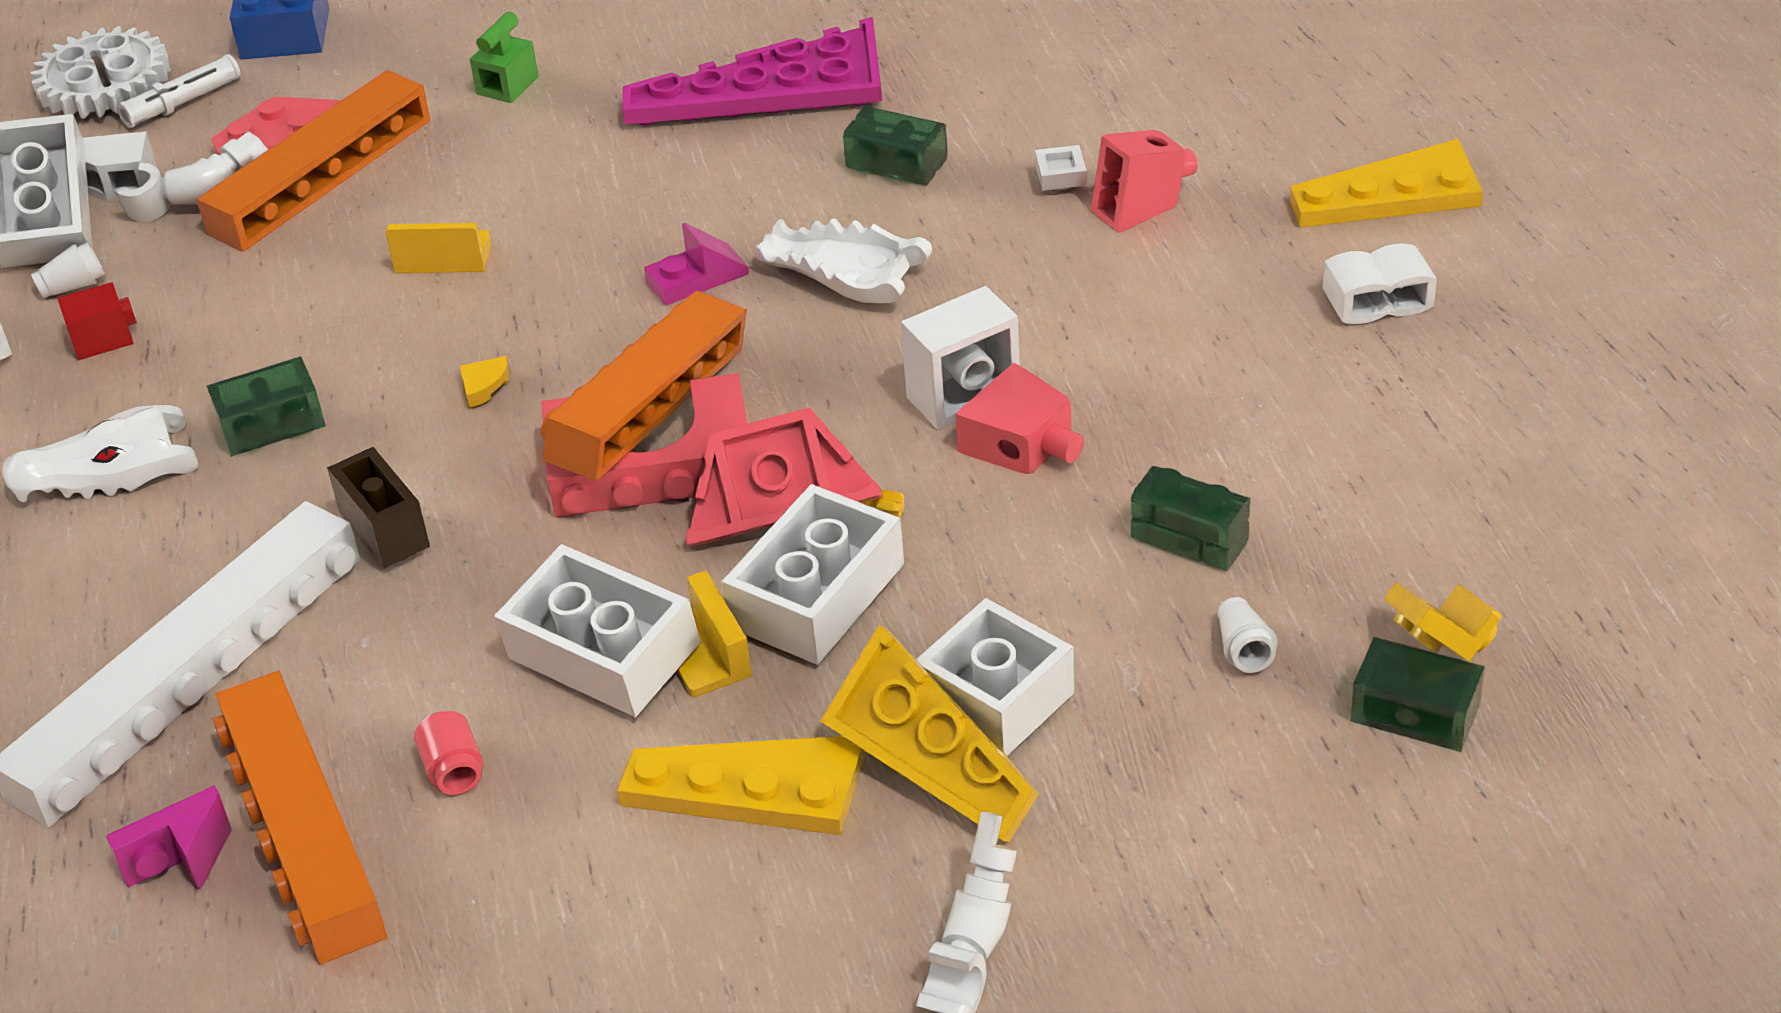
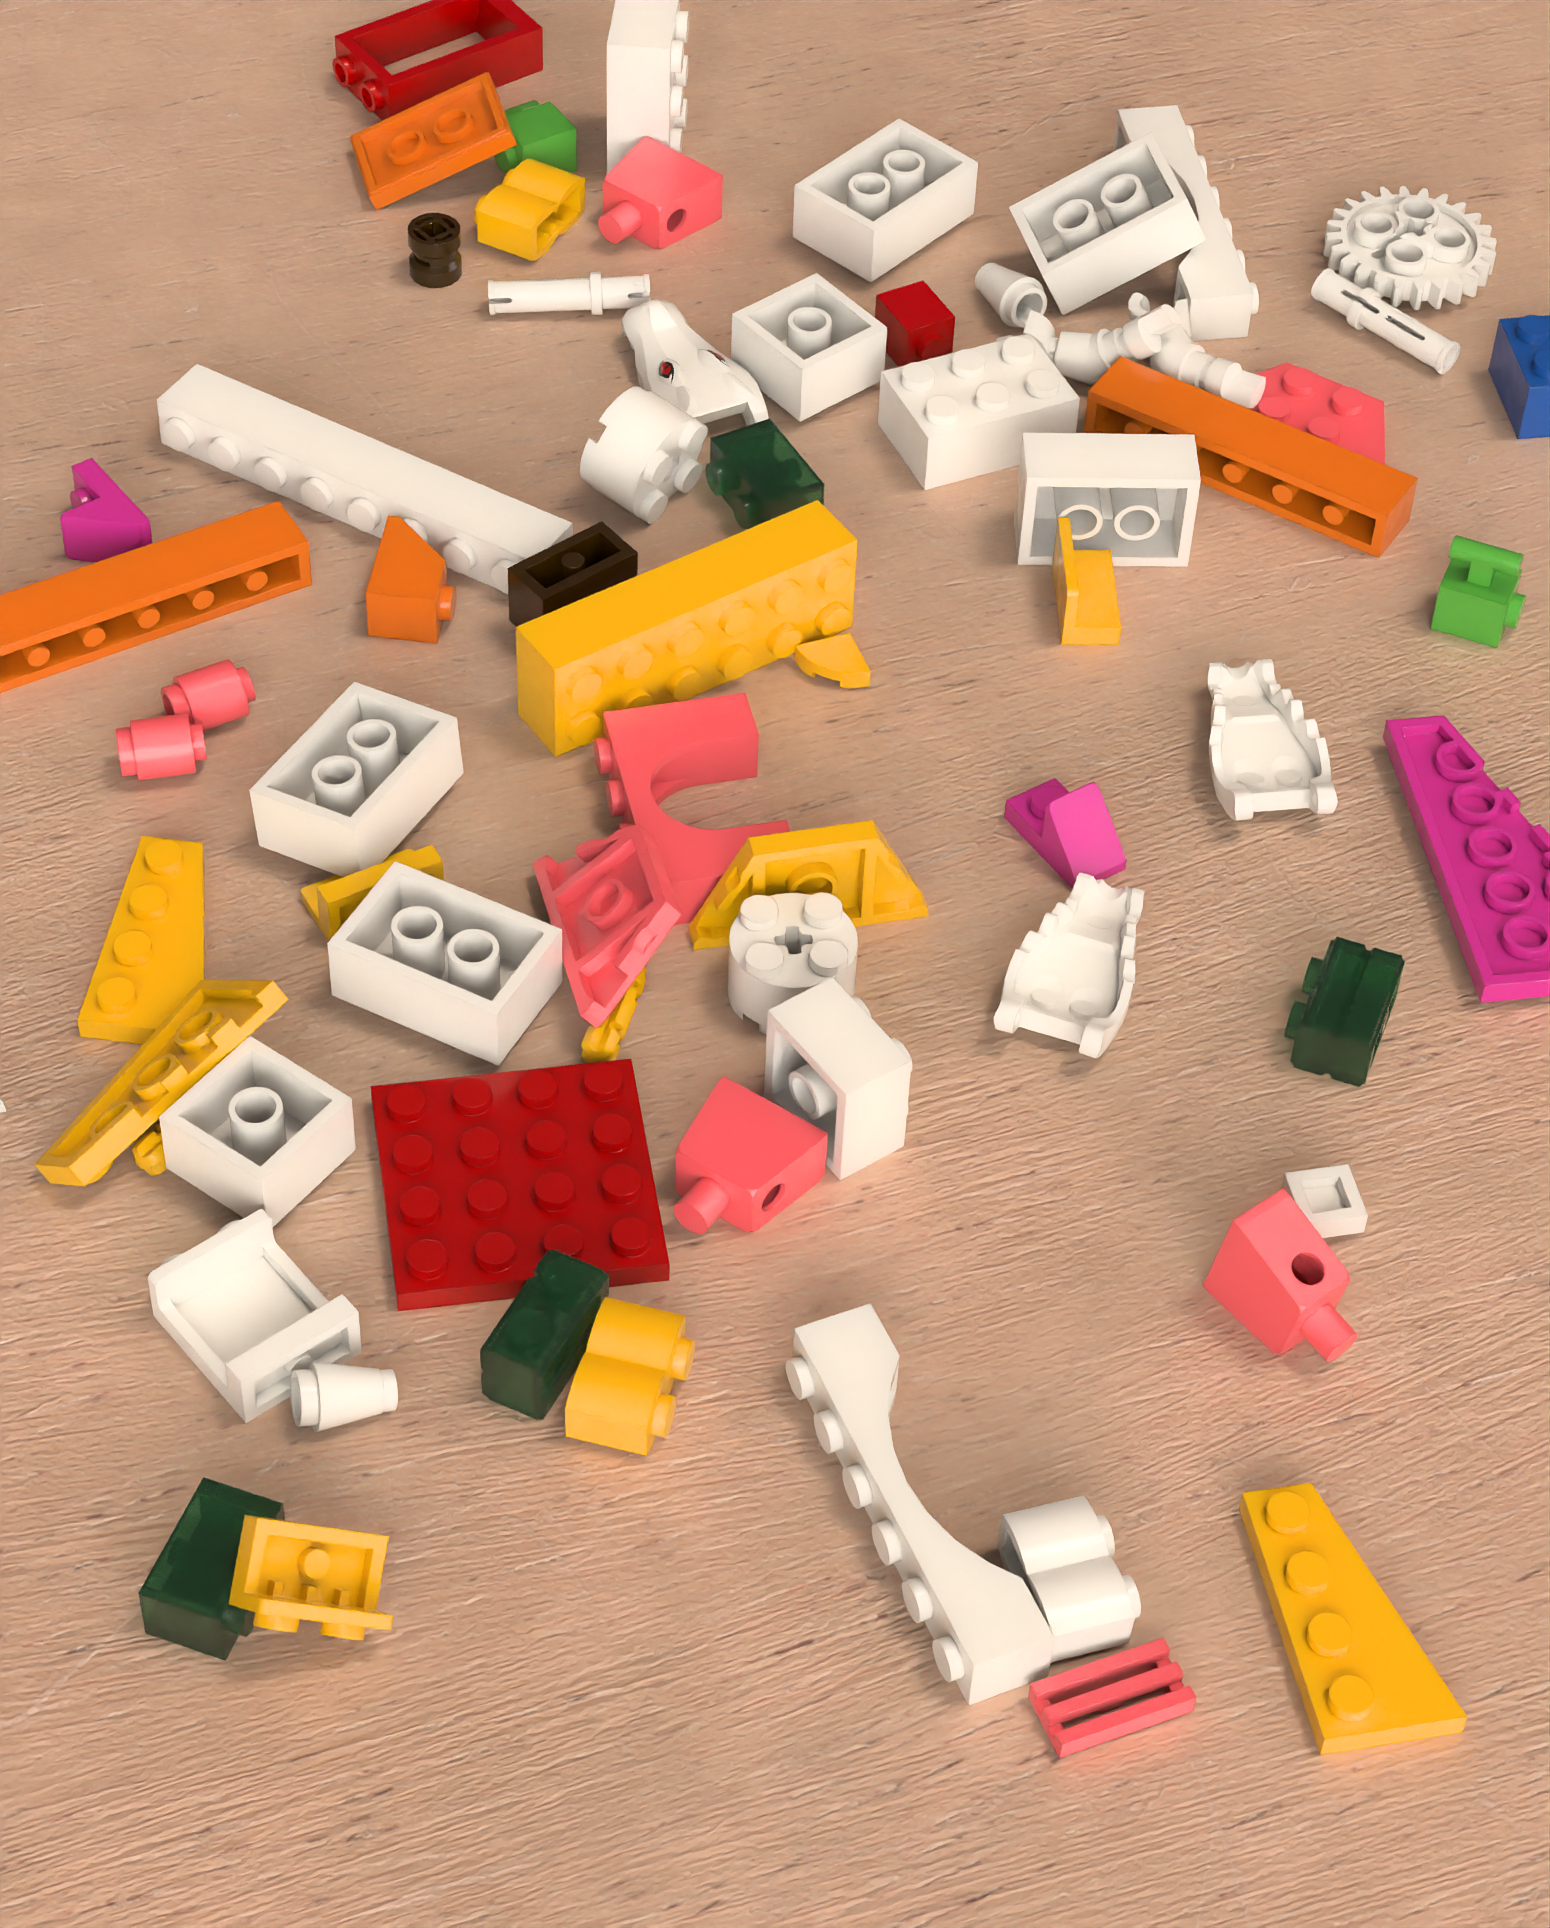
camera: 80 degrees right, 5 degrees up
(110, 367) = (809, 346): none -> white brick
(169, 230) = (1090, 355): none -> white piece
(219, 286) = (970, 408): none -> white brick
(223, 461) = (644, 453): none -> white brick
(330, 623) = (408, 587): none -> orange slope
(356, 206) = (1116, 489): none -> white brick
(461, 435) = (686, 625): none -> yellow brick
(509, 781) = (160, 747): none -> coral brick
(636, 165) = (1263, 745): none -> white animal
(642, 385) = (754, 766): orange brick -> none
(754, 361) = (837, 859): none -> yellow wing
(835, 381) = (787, 947): none -> white brick
(1031, 542) = (510, 1167): none -> red plate
(1173, 688) = (250, 1315): none -> white panel
(1235, 370) = (979, 1615): none -> white arch
(1239, 468) = (627, 1377): none -> yellow brick
(1467, 277) = (1106, 1686): none -> coral tile

